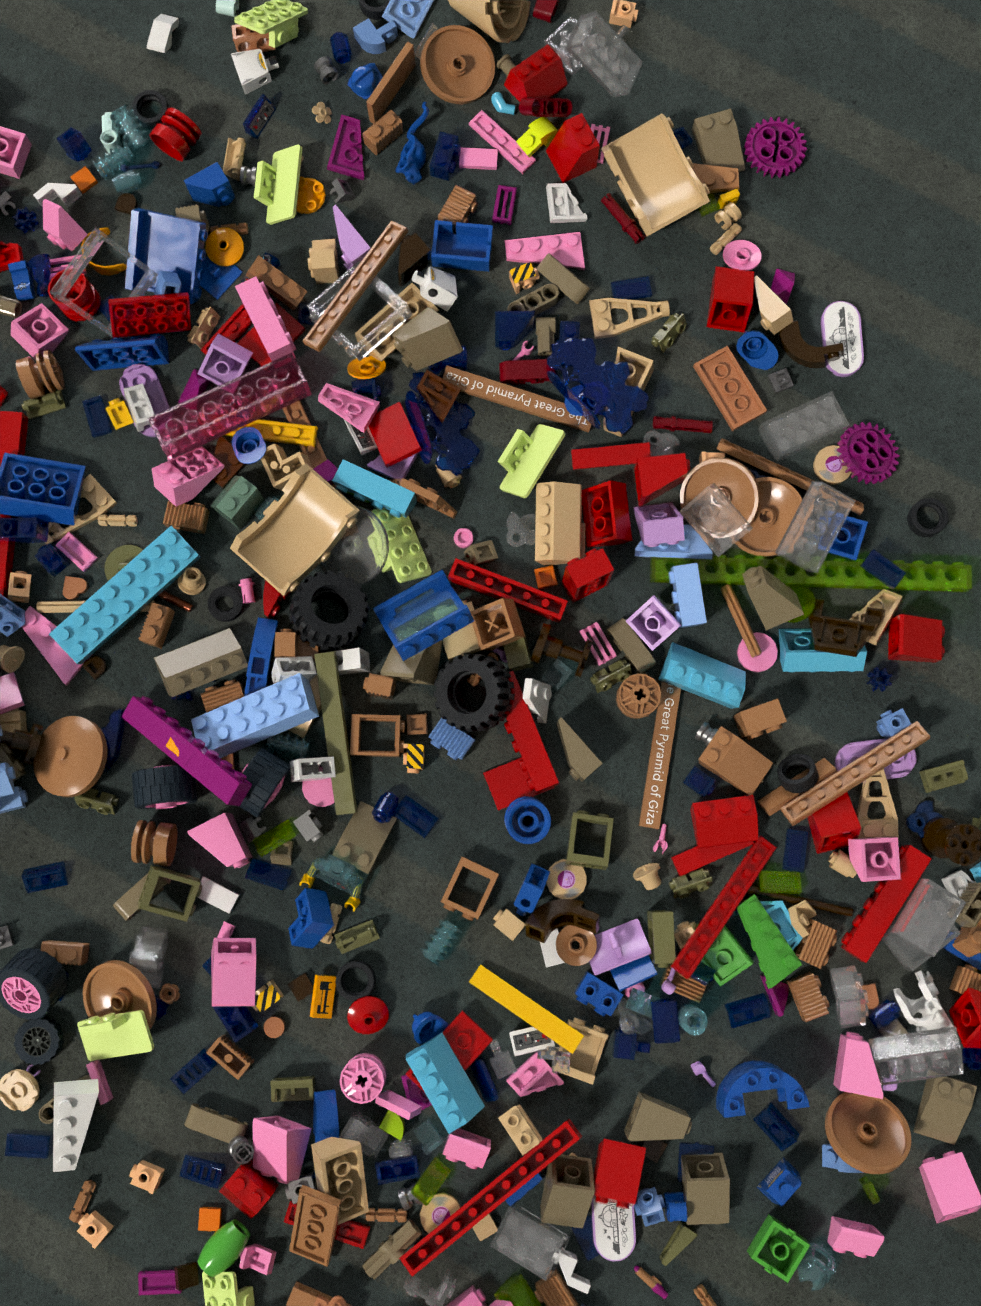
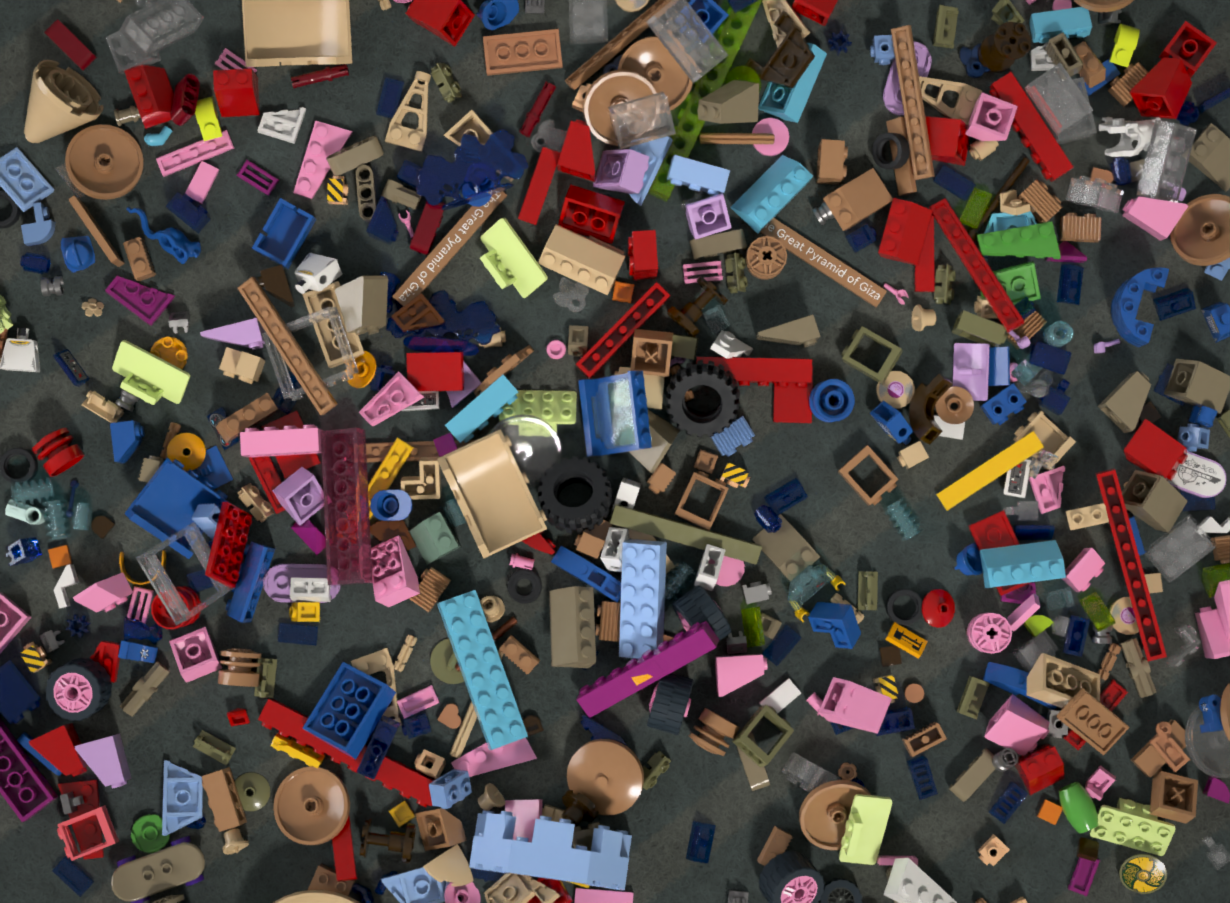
camera: 75 degrees left, 5 degrees up
(458, 206) = (244, 222): medium nougat brick -> none

